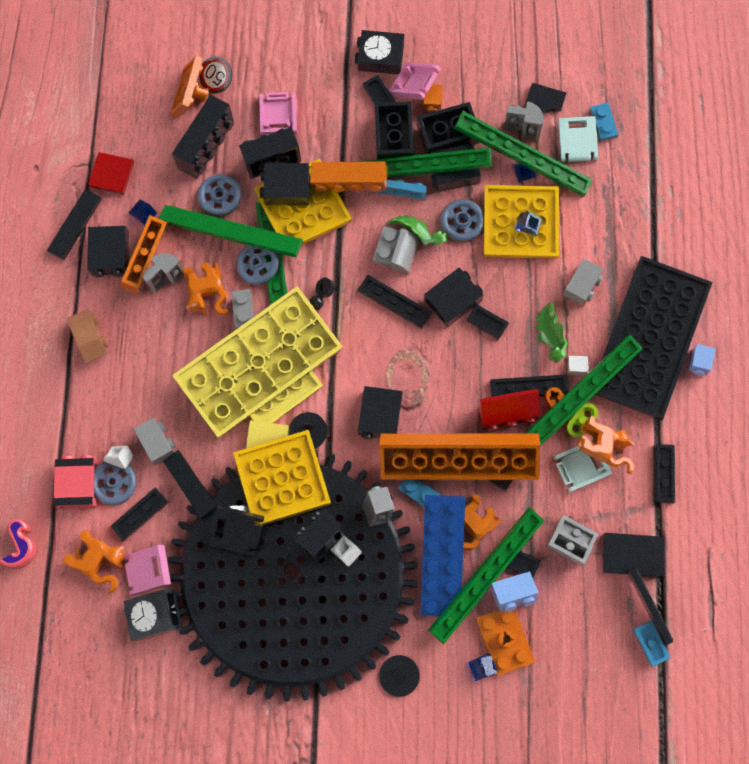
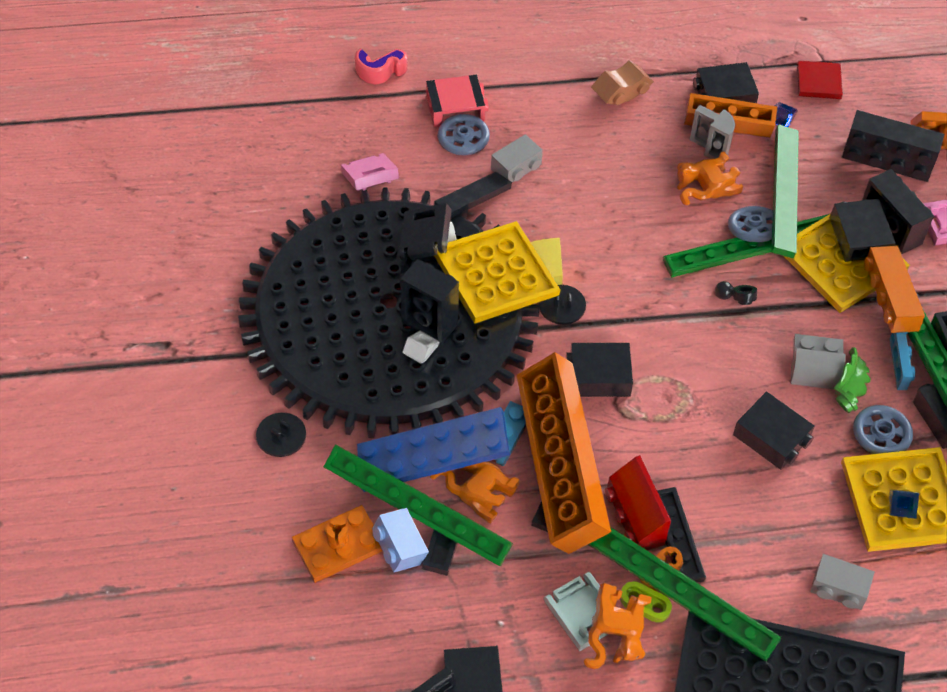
camera: 75 degrees right, 20 degrees down
(74, 224) = (756, 59): black tile -> none
(92, 559) = (376, 127): orange animal -> none
(119, 456) = (492, 133): white slope -> none
(139, 514) = (432, 162): black tile -> none
(152, 614) = (320, 181): black brick -> none
(227, 207) = (828, 178): sand blue plate -> none
(242, 307) = (690, 217): light grey brick -> none
(260, 366) = (629, 241): light yellow slope -> none
(378, 506) = (478, 362): light grey brick -> none
(394, 301) = (749, 371): black tile -> none
(482, 667) = (301, 519): clear blue slope -> none
(487, 321) = (753, 477): black tile -> none
(551, 333) = (755, 550): bright green plant -> none
(572, 540) = (477, 602): light grey brick -> none
(578, 365) = (724, 588): white slope -> none

